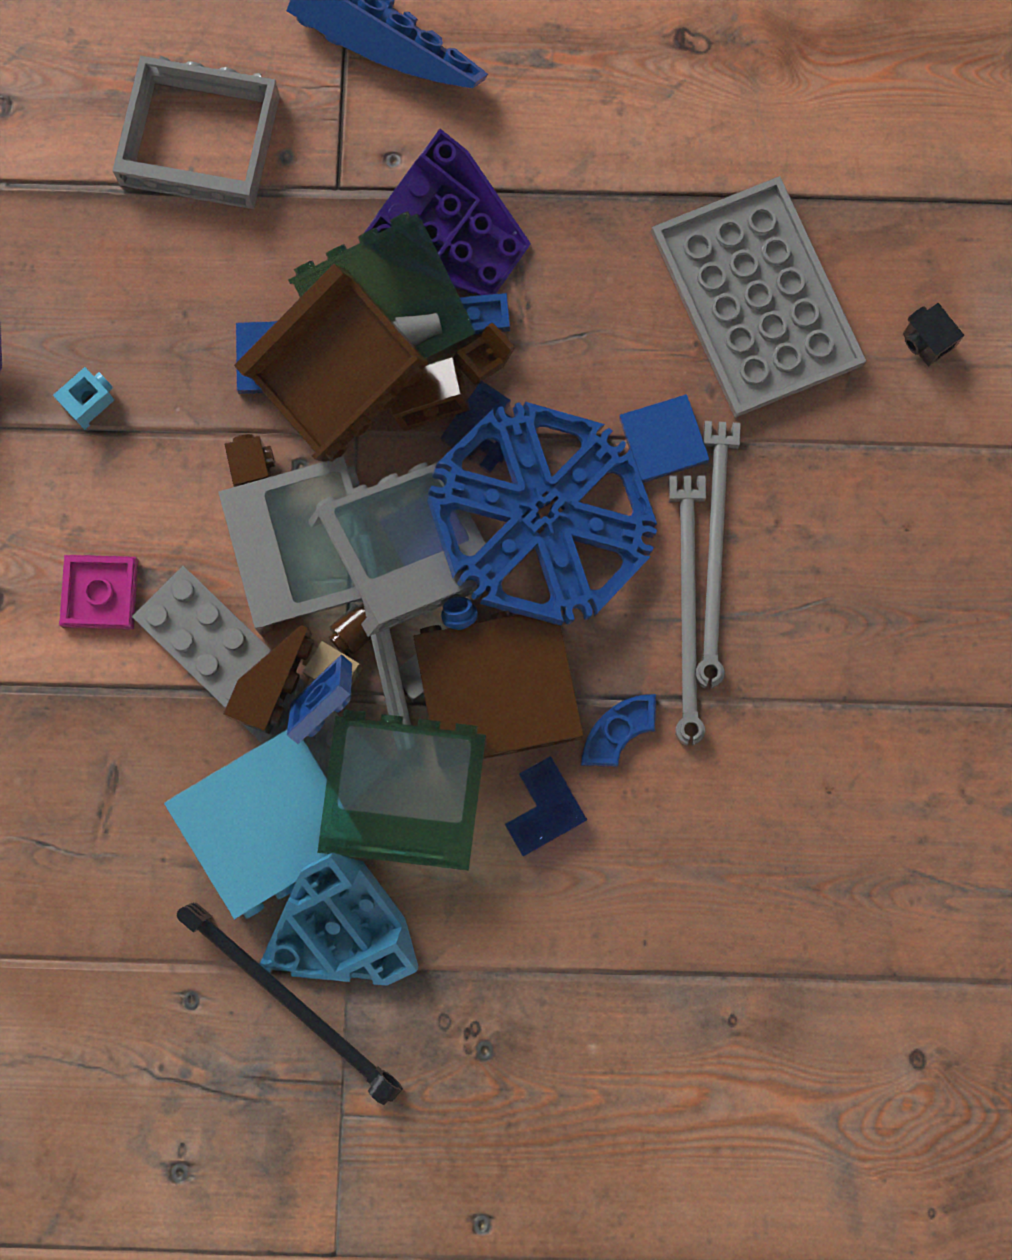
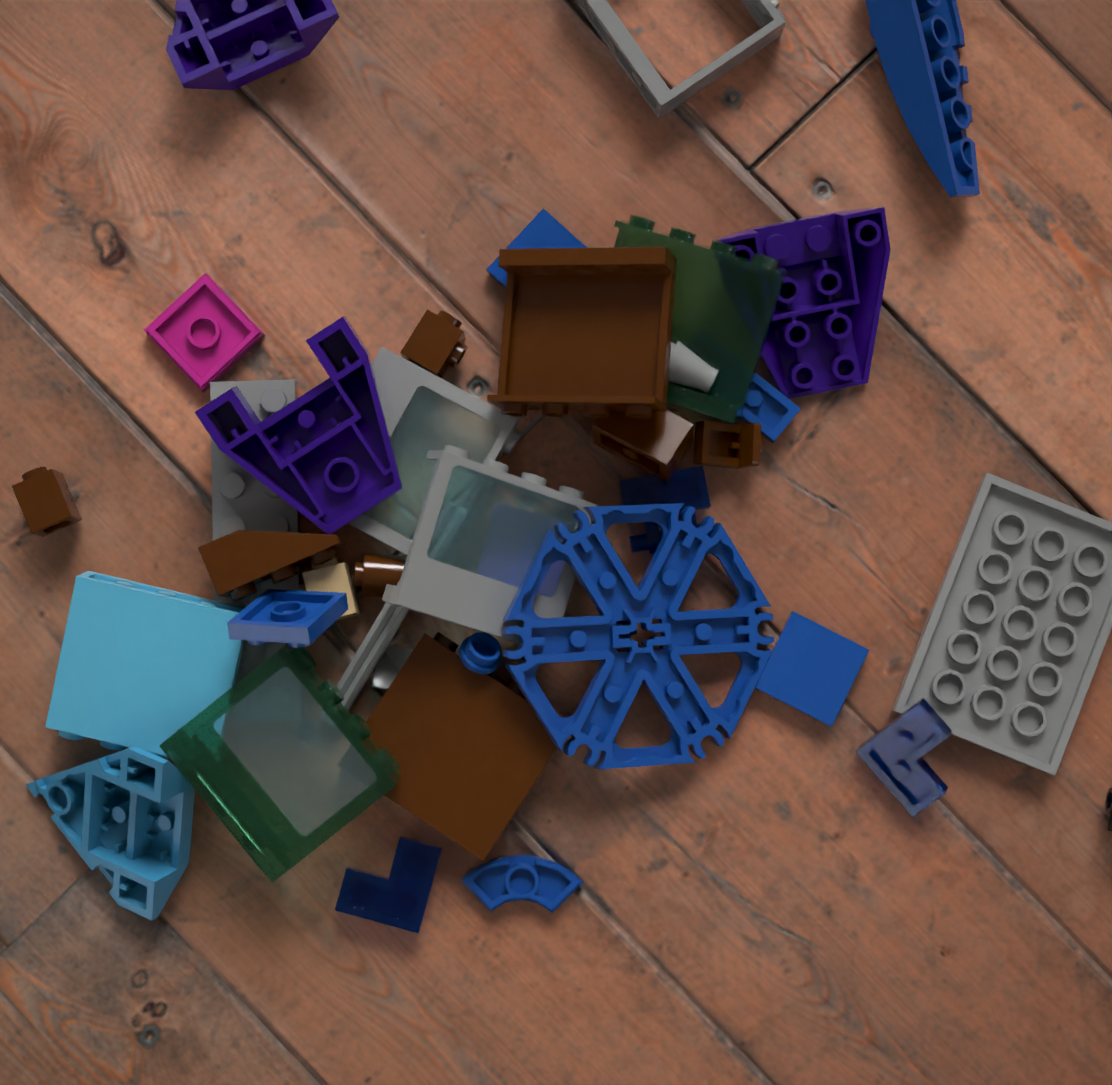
camera: 40 degrees right, 5 degrees up
(75, 391) = (342, 140): medium azure brick -> none
(99, 783) = (46, 501): none -> reddish brown brick
(243, 580) = (324, 449): none -> dark purple wedge
(383, 1085) = (39, 982): black hinge -> none
(687, 499) = (779, 740): light grey hinge -> none
(715, 553) = (856, 721): light grey hinge -> none
(764, 438) = (897, 756): none -> clear blue plate

